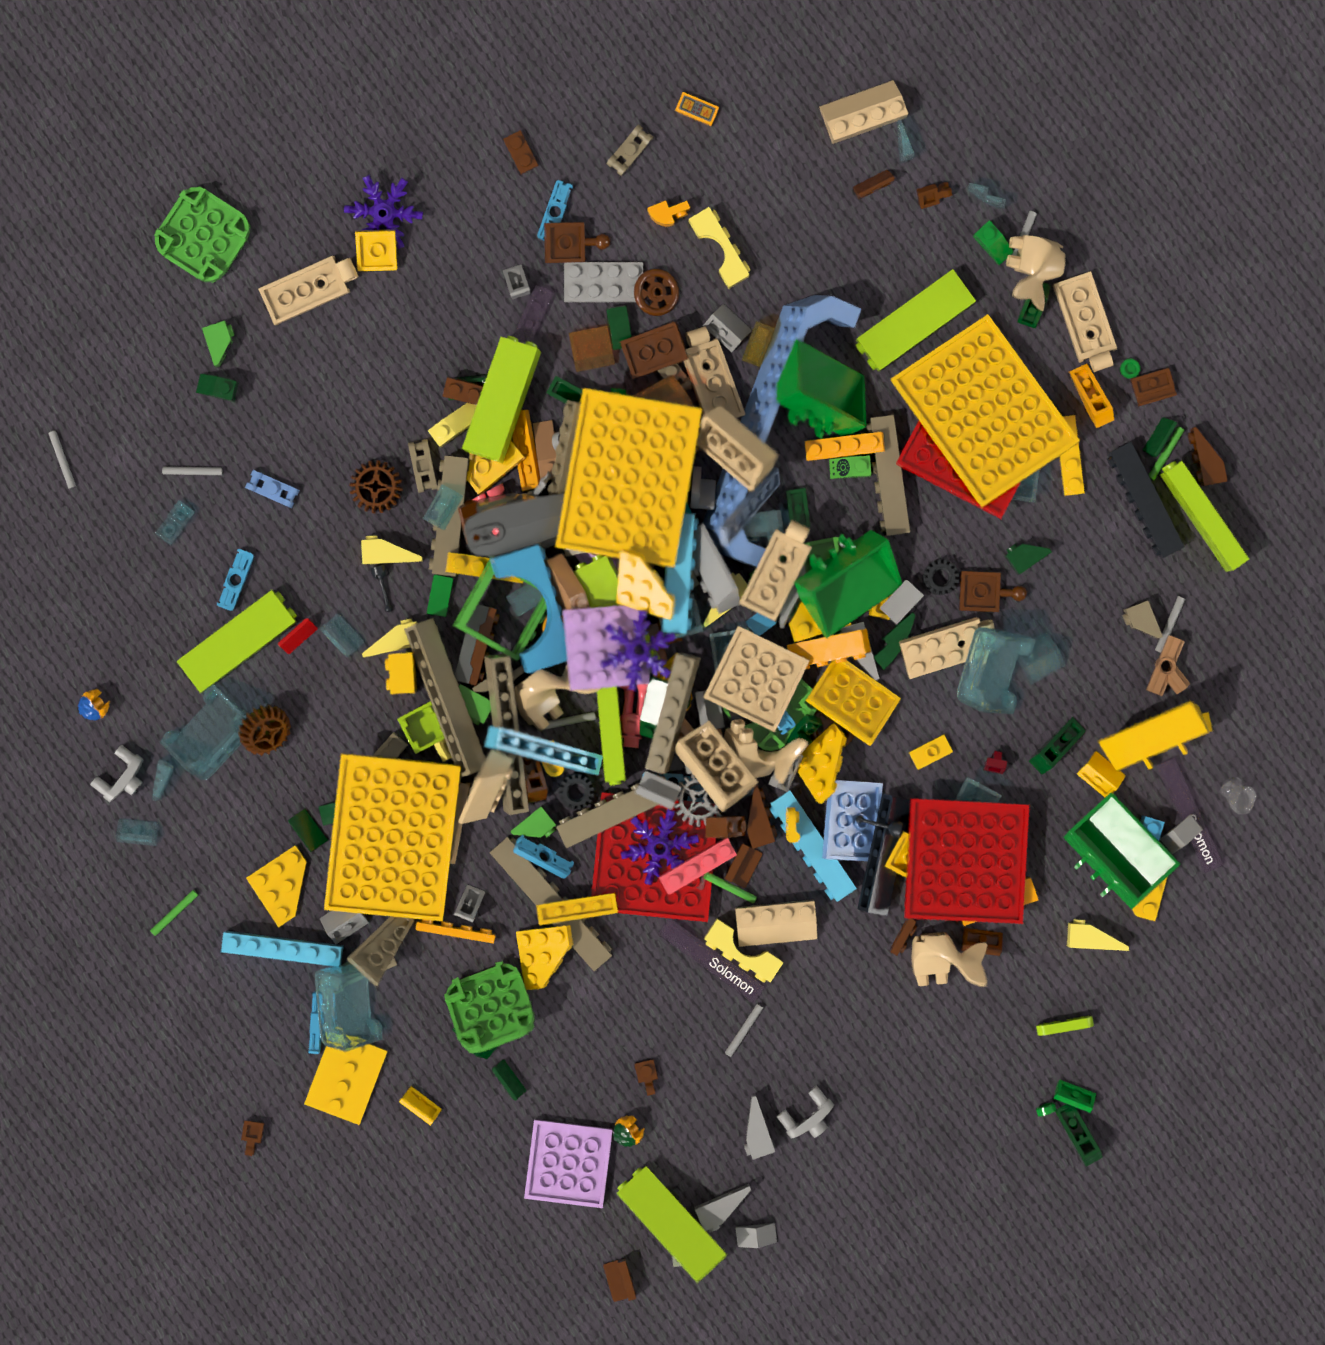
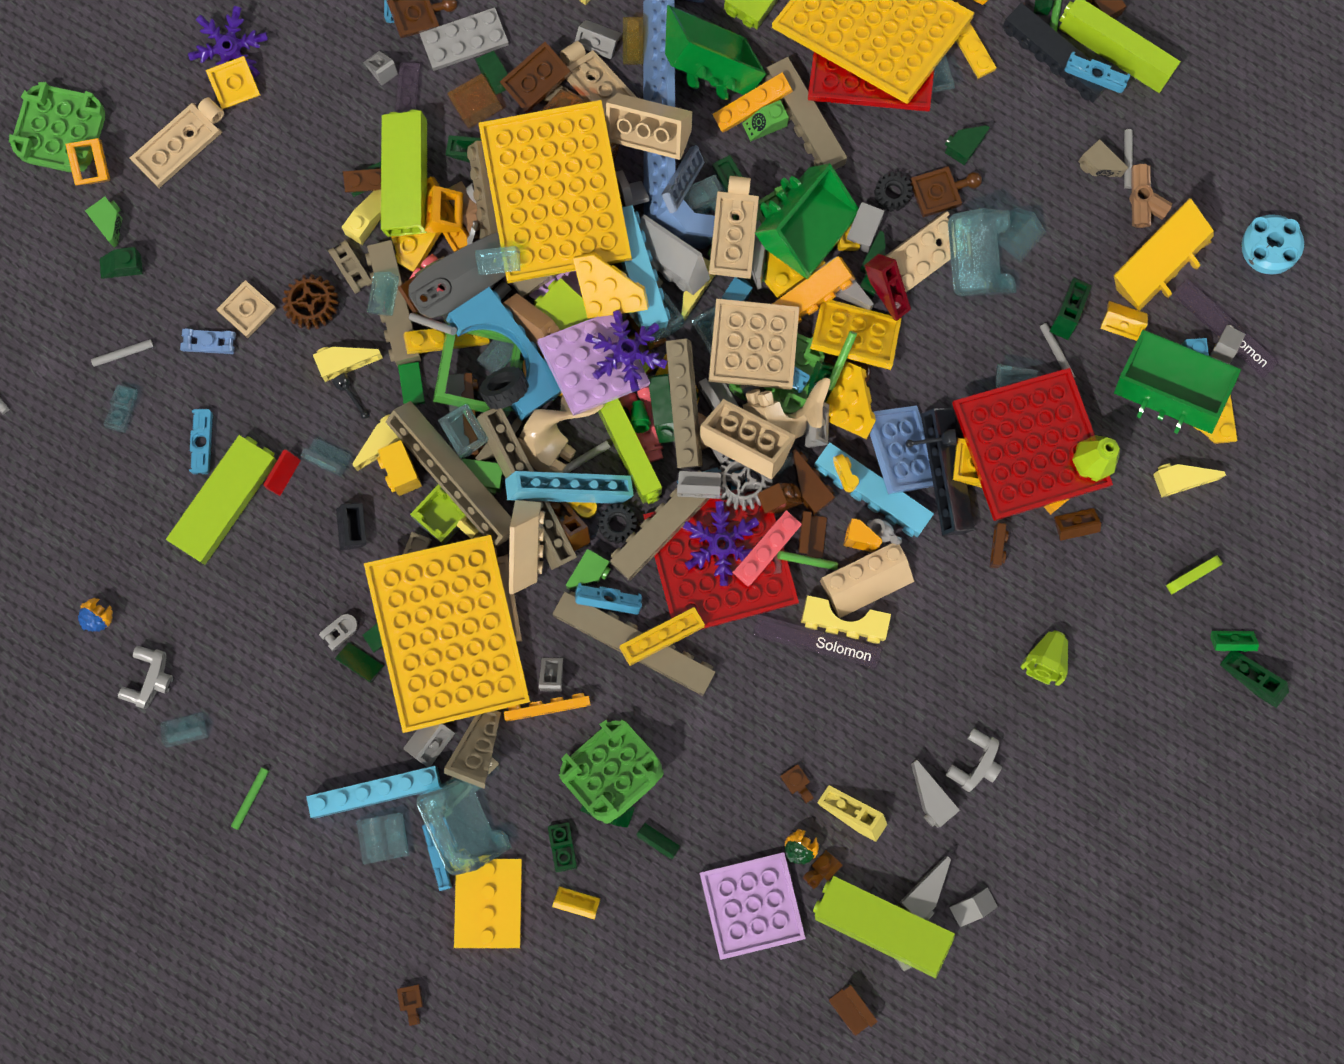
camera: 20 degrees left, 10 degrees down
(162, 777) = (191, 663): clear light blue slope -> none
(208, 737) = (227, 601): clear light blue windscreen -> none
(230, 284) = (99, 157): none -> light orange tile
(264, 729) = (270, 575): reddish brown gear -> none
(275, 989) = (382, 838): none -> clear light blue slope
(280, 884) = (350, 728): yellow plate -> none
(307, 794) = (345, 625): none -> light grey plate
(316, 472) = (246, 309): none -> tan plate
(341, 707) = (351, 526): none -> black brick
(425, 1054) = (562, 847): none -> dark green slope
(459, 665) = (446, 422): none -> clear light blue tile
(479, 558) = (432, 323): none -> light grey bar
(515, 448) = (433, 203): none -> light orange tile
(521, 653) = (504, 387): none -> black tyre
(542, 953) = (644, 696): yellow plate -> none
(554, 527) = (498, 260): none -> clear light blue slope
(630, 706) = (639, 417): none -> green cone
(642, 1155) = (824, 867): none -> reddish brown plate
(670, 300) = (525, 15): reddish brown plate -> none
(684, 1118) = (853, 813): none -> light yellow slope
(743, 1031) = (877, 700): light grey piece -> none
(783, 885) = (861, 537): none -> light orange tile
(804, 888) = (884, 531): none -> light grey piece
(827, 723) = (842, 359): none -> bright green bar
(898, 668) = (888, 284): none -> dark red slope
(905, 1051) = (1051, 659): none -> lime cone
(930, 752) = (951, 359): yellow plate -> none
(936, 951) = (1037, 550): tan hips -> none
(995, 763) = (1019, 346): dark red tile -> none
(1016, 896) = (1096, 457): none -> lime cone
(1029, 780) = (1055, 347): none -> light grey bar
(1045, 1109) = (1211, 665): green tile -> none
(1180, 547) = (1083, 68): none -> dark azure piece
(1239, 796) = (1265, 290): clear hair -> none
(1259, 768) = (1272, 258): none -> medium azure piece

